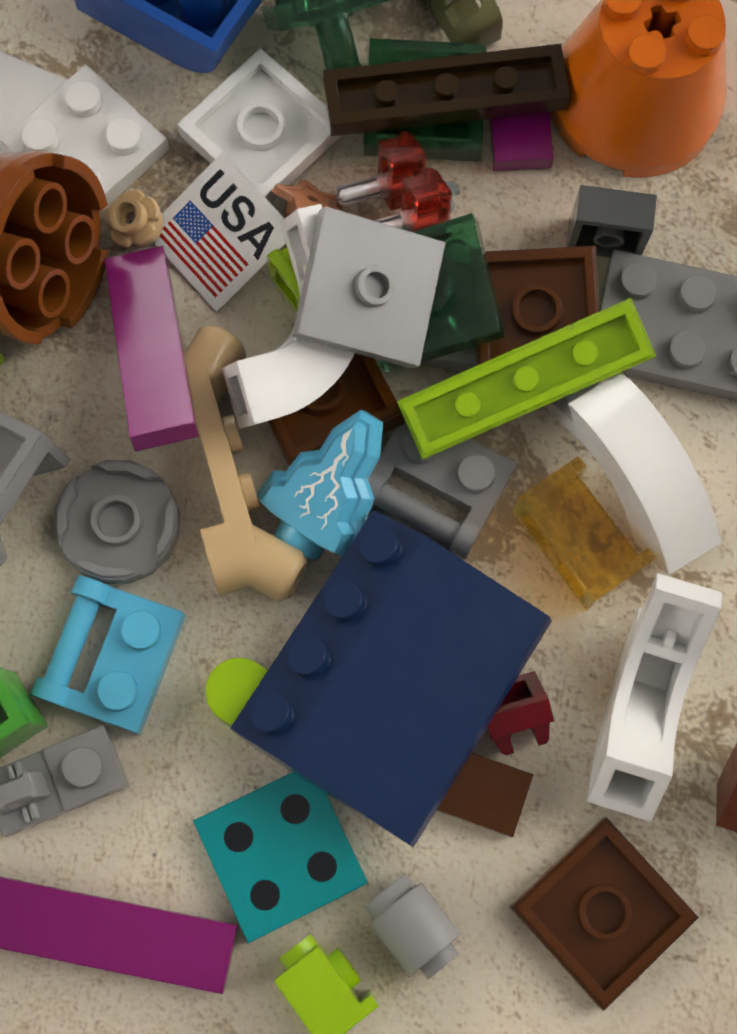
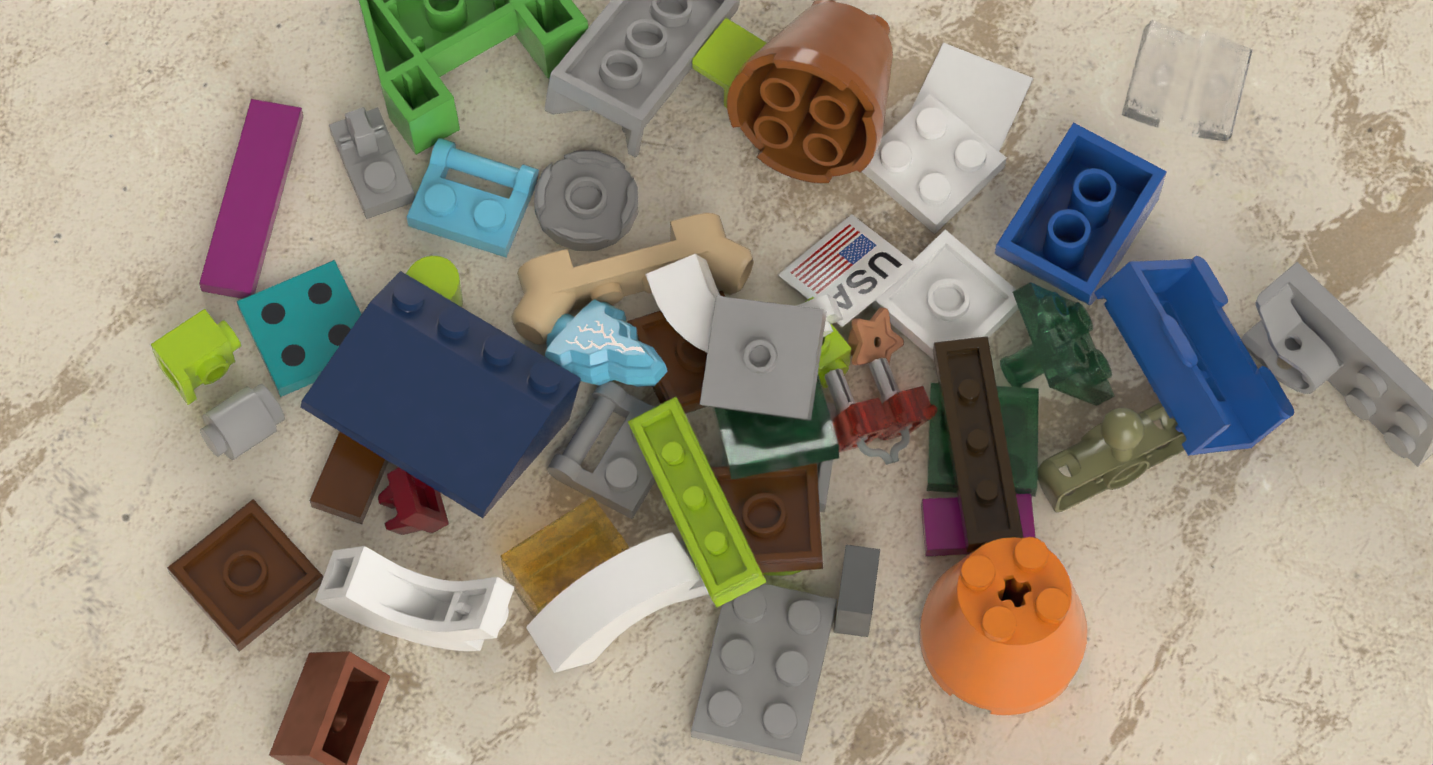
camera: 90 degrees right, 10 degrees down
(144, 228) = (856, 202): tan plate -> none
(150, 350) = (727, 206): magenta tile -> none

